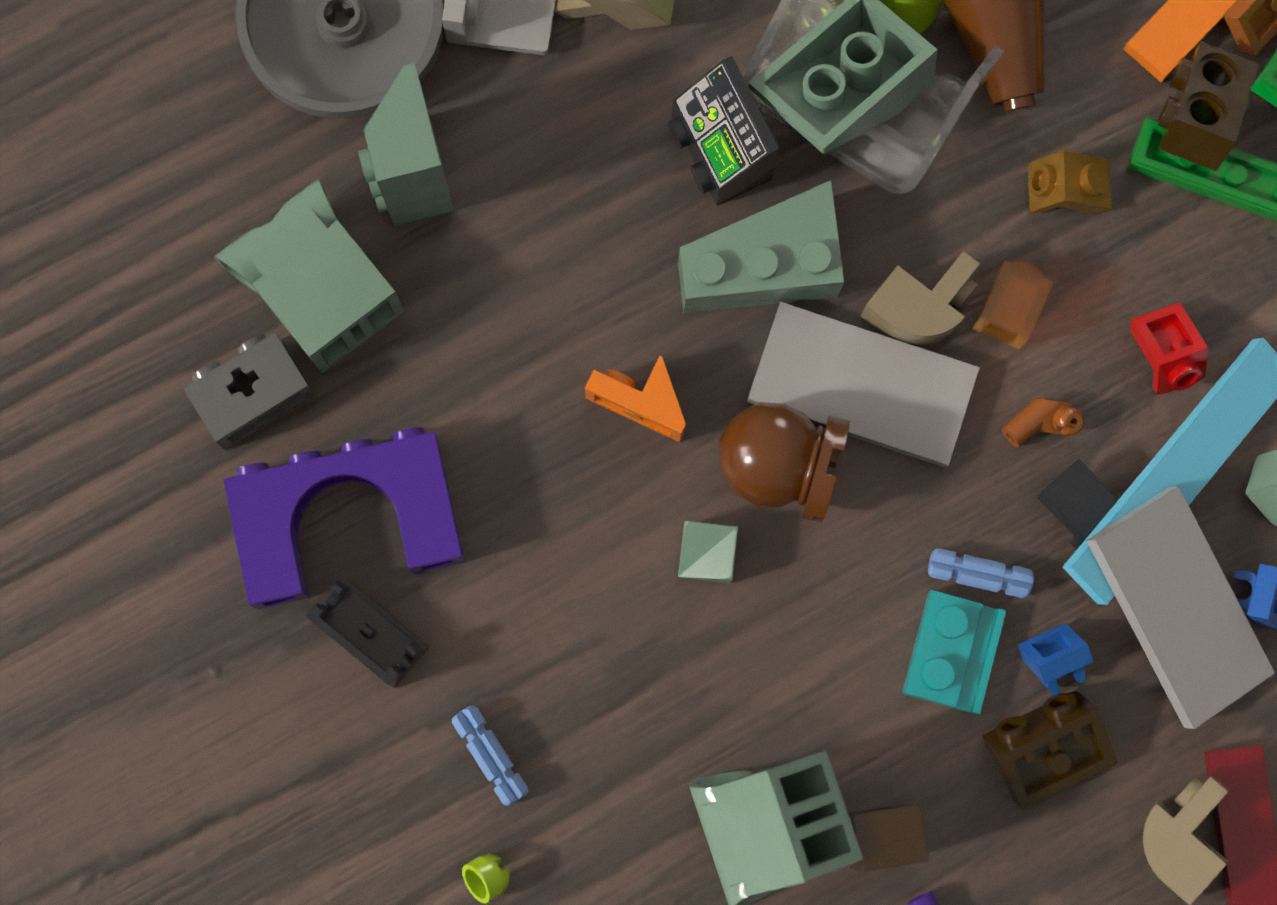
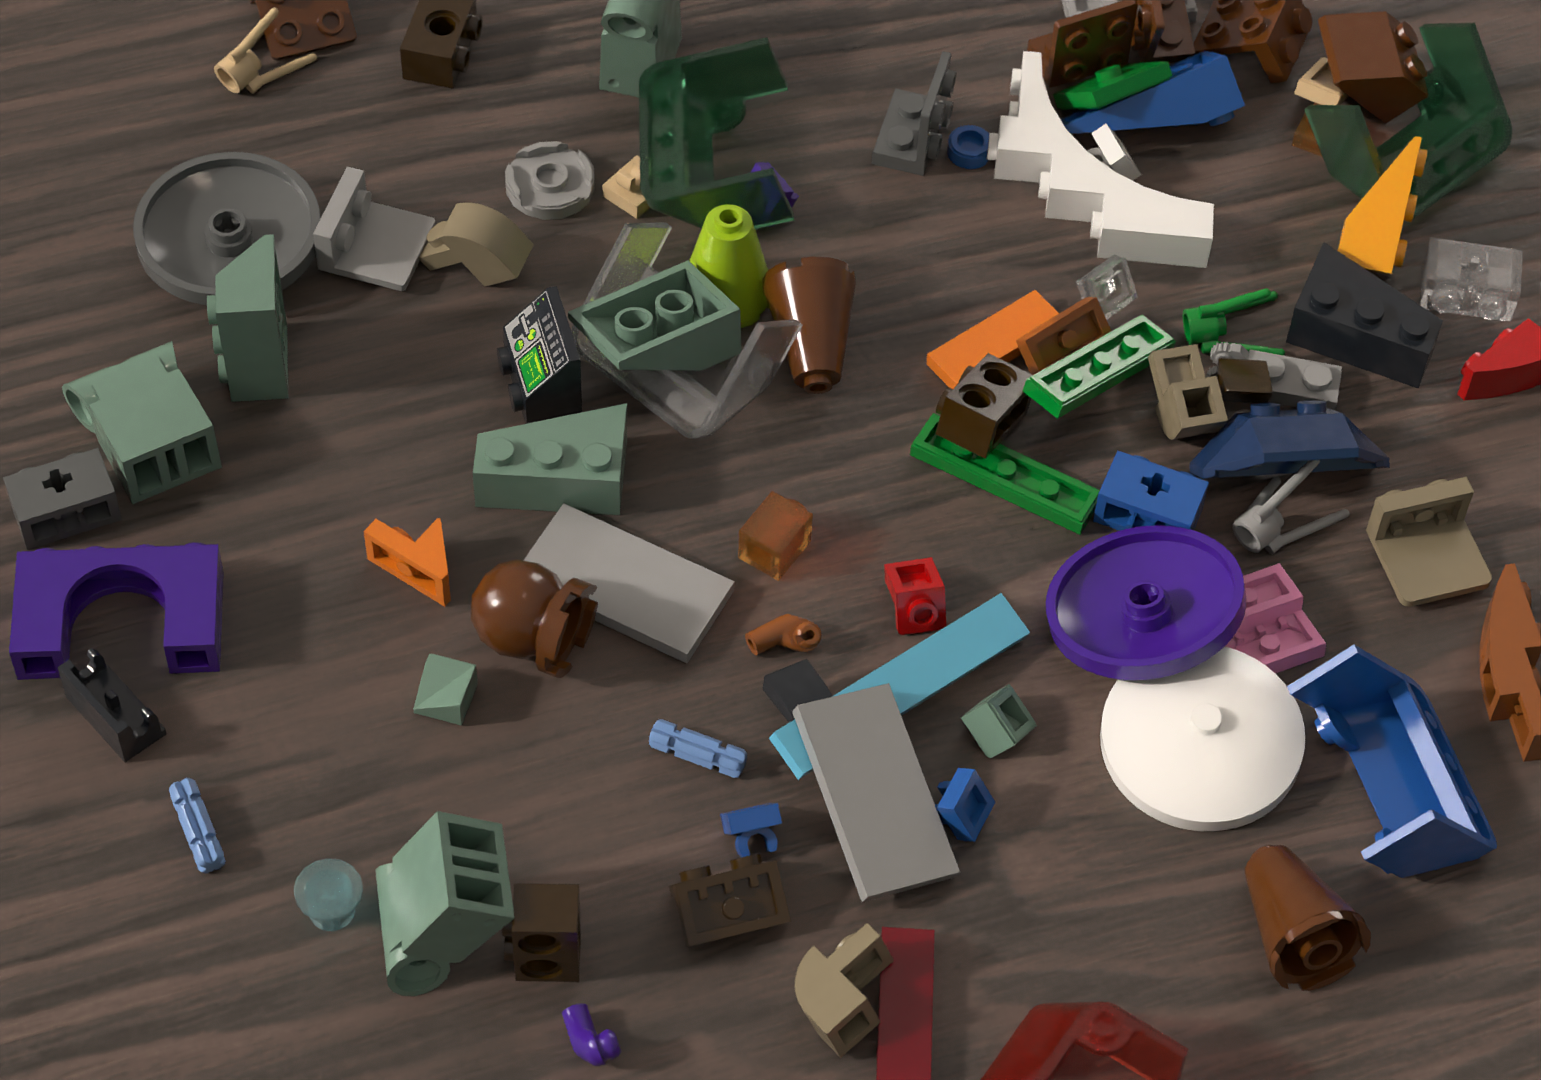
camera: 10 degrees right, 25 degrees down
(485, 877) = (163, 923): lime hinge -> none
(648, 821) = (328, 893): none -> clear light blue piece
(916, 314) = (692, 529): dark tan brick -> none
(954, 652) = (657, 811): teal plate -> none
(1069, 182) = (852, 449): pearl gold bracket -> none

